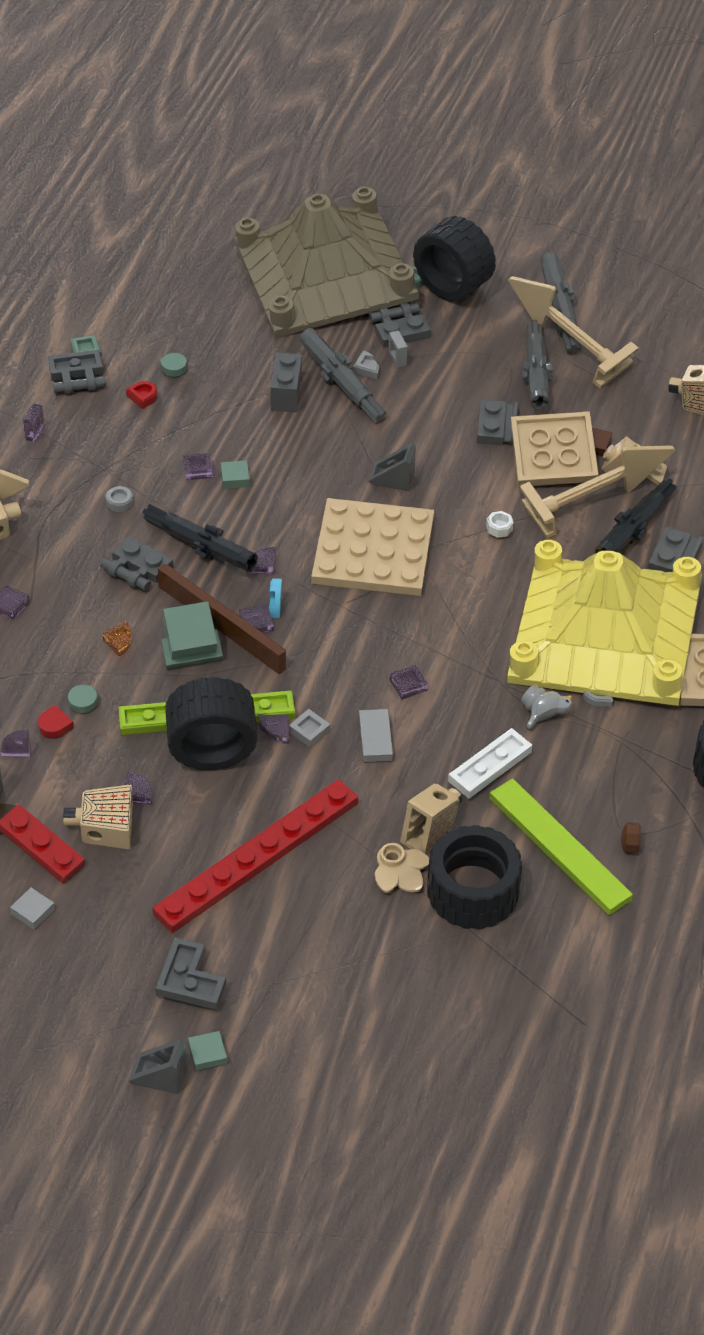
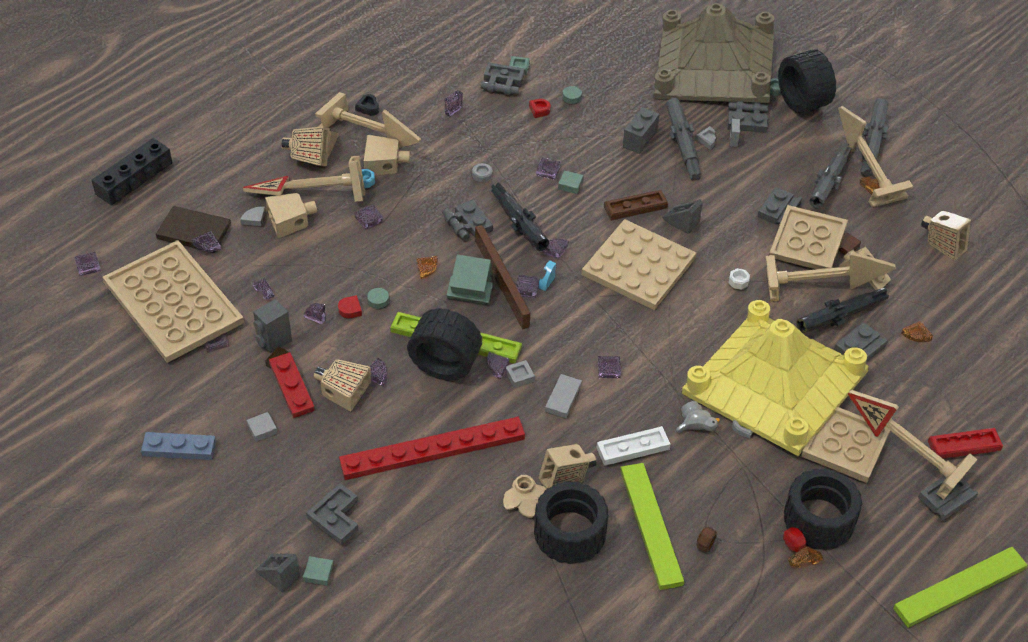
camera: 25 degrees right, 0 degrees up
(328, 476) = (635, 205): none -> reddish brown tile
(585, 361) = (869, 184): none -> clear orange tile

